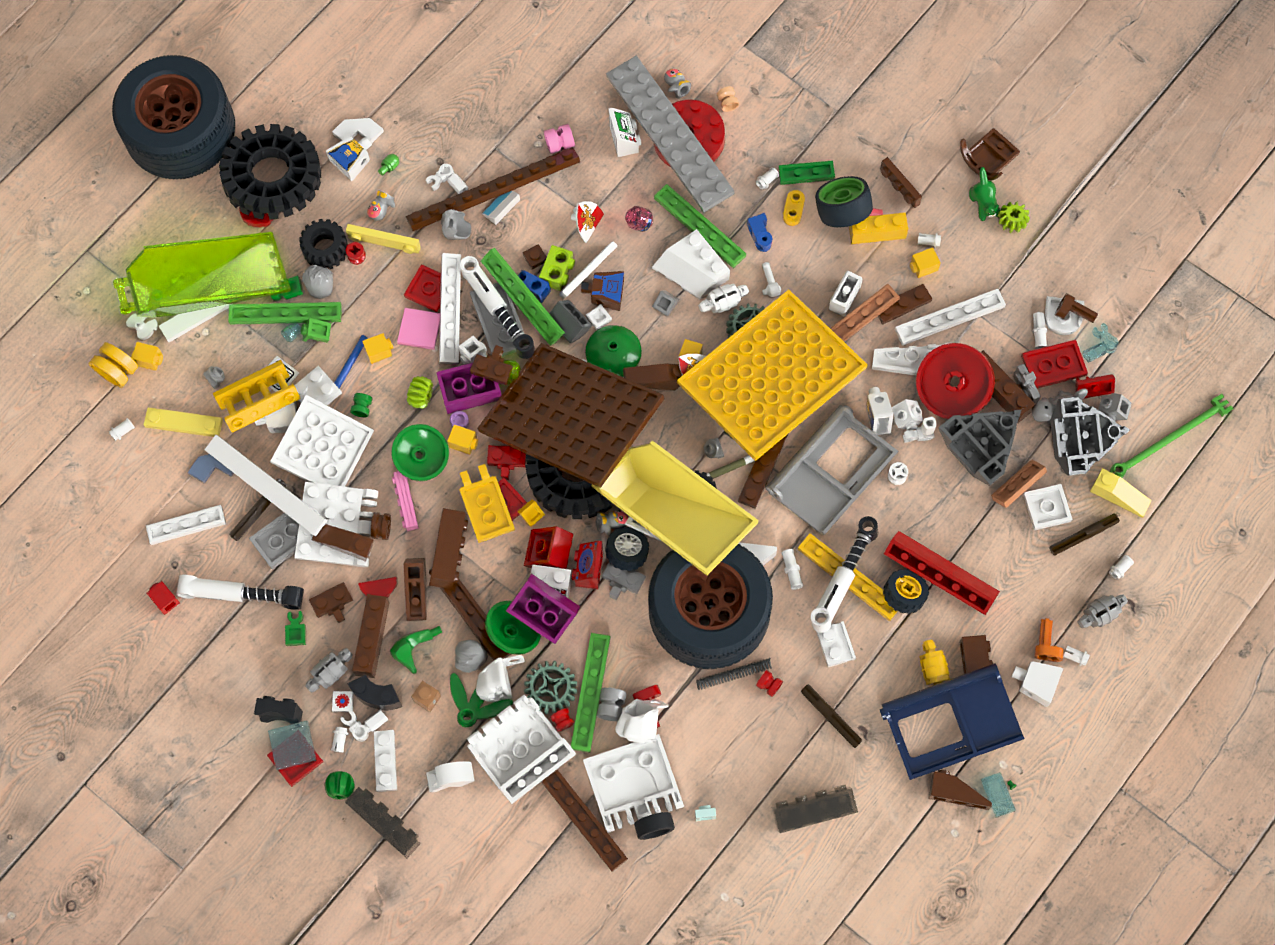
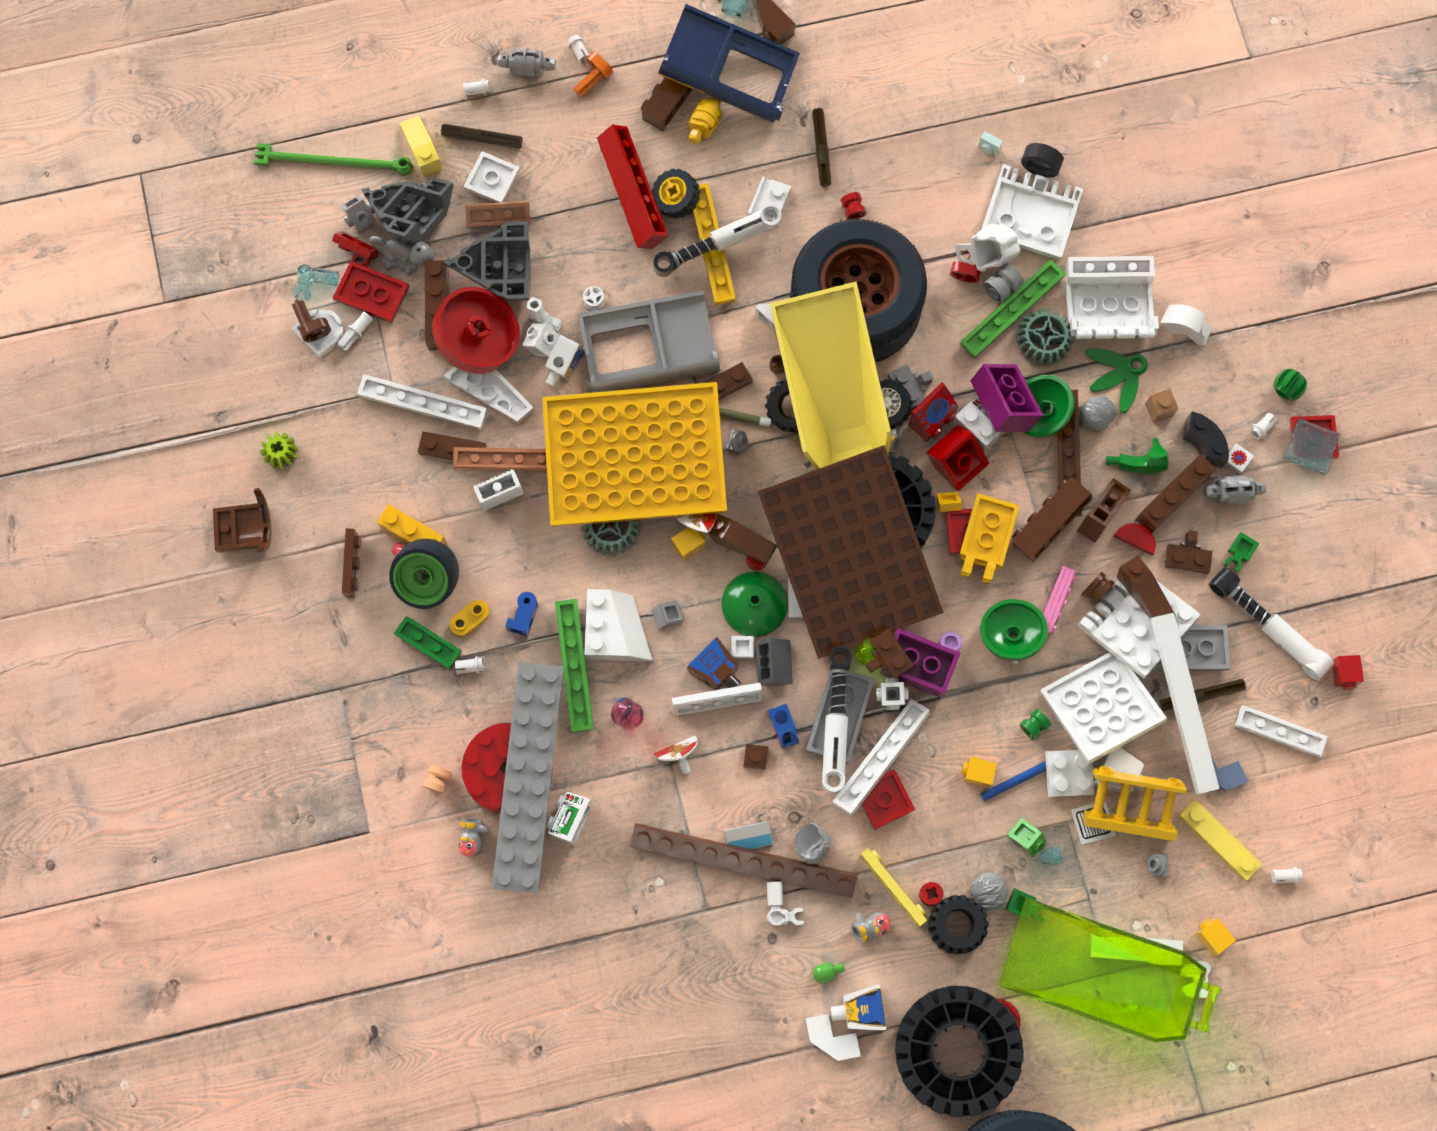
camera: 145 degrees left, 5 degrees up
(113, 365) = (1258, 944): yellow wheel -> none
(272, 710) = (1305, 482): black brick -> none
(284, 313) = (1043, 878): bright green plate -> none
(361, 732) = (1239, 420): white bar -> none
(385, 761) = (1233, 381): white plate -> none
(385, 825) = (1272, 327): clear smoke brick -> none
(419, 329) = (923, 765): bright pink tile -> none
(420, 392) = (971, 691): lime gear -> none
(462, 439) = (962, 617): yellow brick -> none
(494, 681) = (1093, 371): white piece -> none
(505, 458) = (938, 572): red hinge -> none
(522, 296) = (803, 715): bright green plate -> none
(552, 267) = (749, 729): lime brick -> none
(559, 138) = (645, 865): bright pink wheel -> none
(562, 719) = (1055, 301): red wheel -> none
(584, 820) = (1095, 206): reddish brown plate -> none
(723, 298) = (613, 572): white piece -> none
(772, 288) = (557, 550): white piece -> none
(792, 569) = (755, 286): white pin -> none
(815, 809) = (898, 82): clear smoke brick -> none
(925, 262) = (399, 468): yellow brick -> none
(928, 239) = (370, 484): white pin -> none
(984, 193) = (286, 489): green animal -> none
(1026, 382) = (412, 286): light grey hinge -> none
(1038, 681) = (627, 49): white torso -> none

